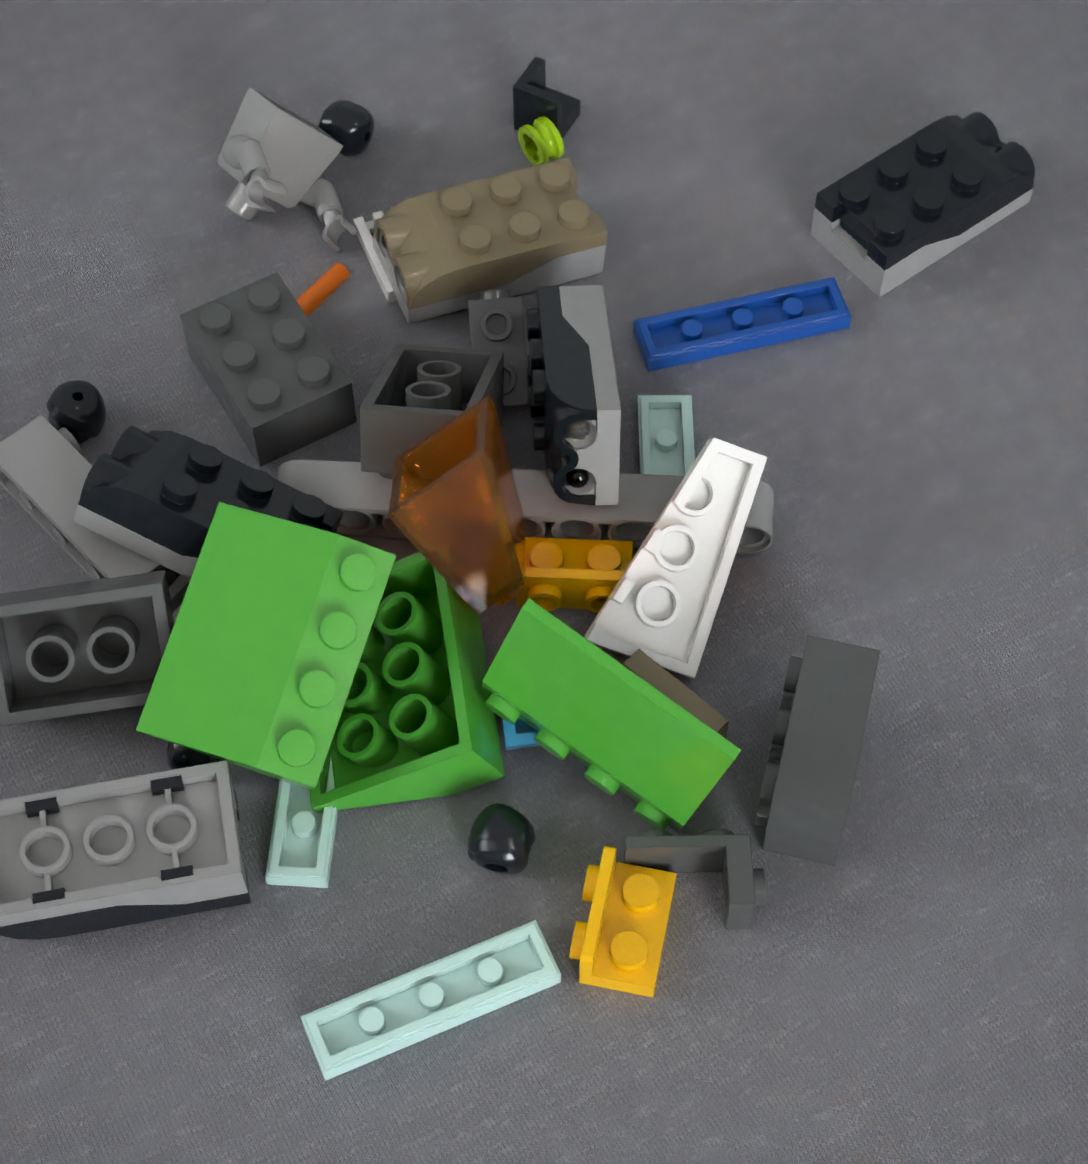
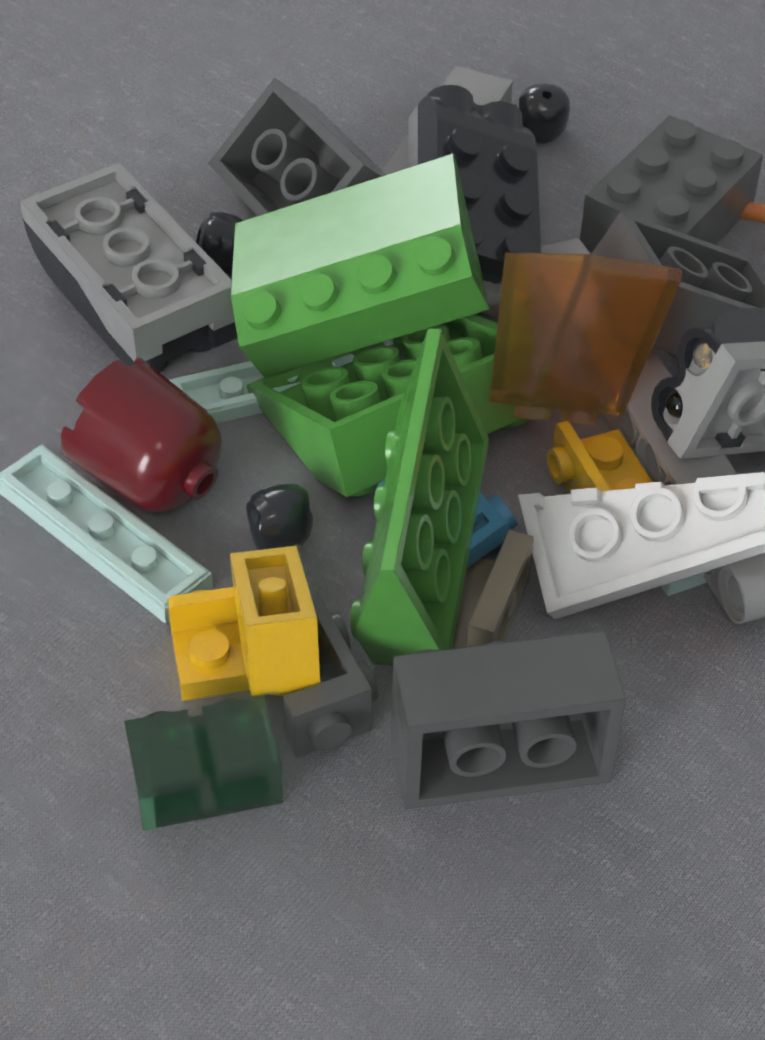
camera: 65 degrees right, 10 degrees down
(107, 754) = (217, 238): none -> black piece
(372, 914) = (144, 438): none -> dark red cylinder
(654, 877) = (275, 621): none -> yellow slope
(749, 997) = (204, 762): none -> clear green piece

